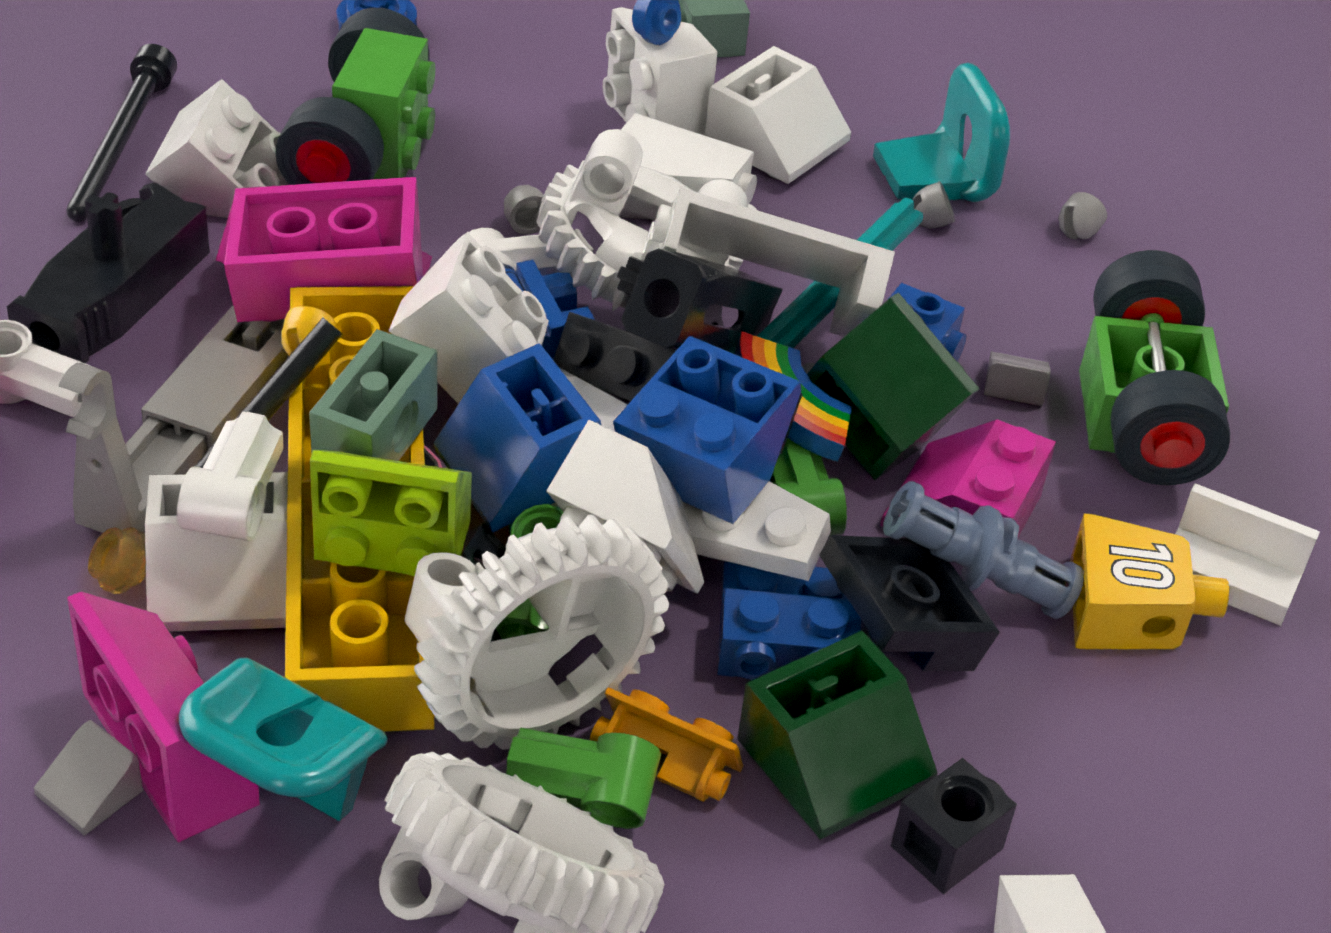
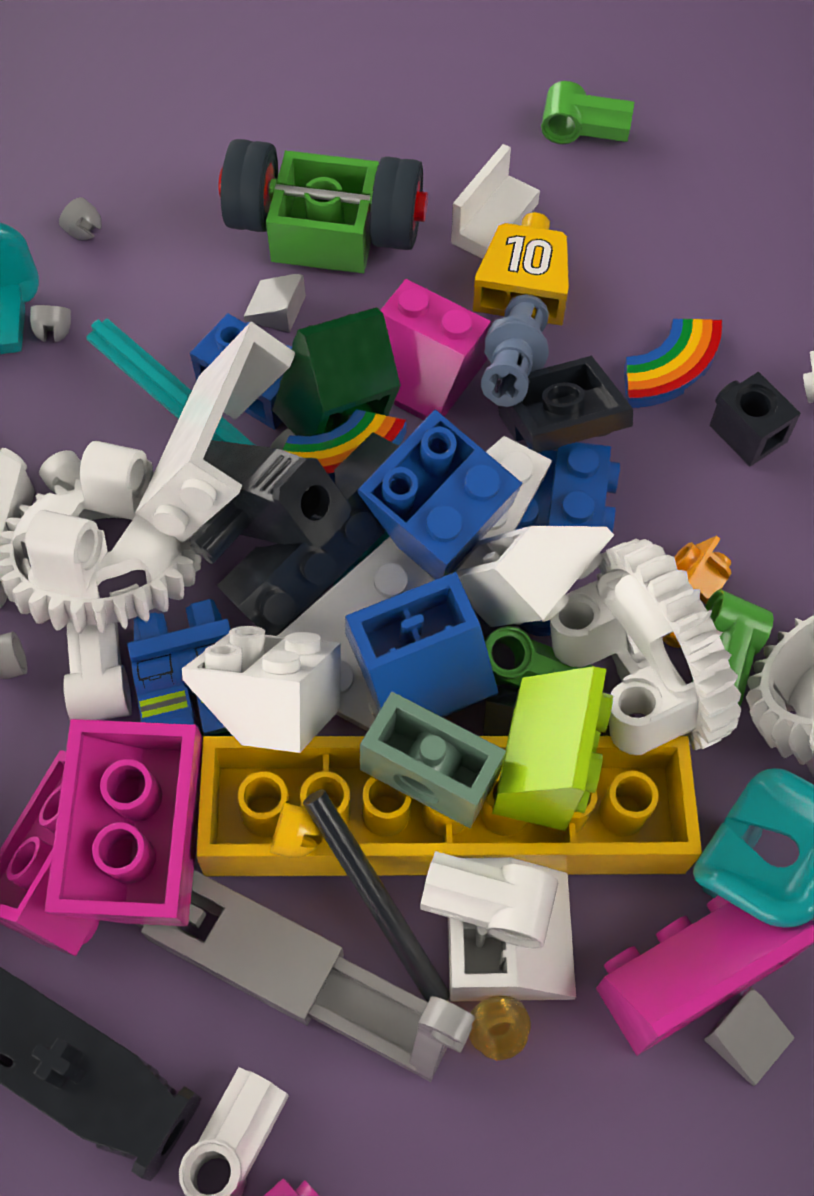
camera: 80 degrees left, 20 degrees up
(837, 733) = (682, 477): dark green slope -> none
(1026, 748) = (673, 365): none -> tile

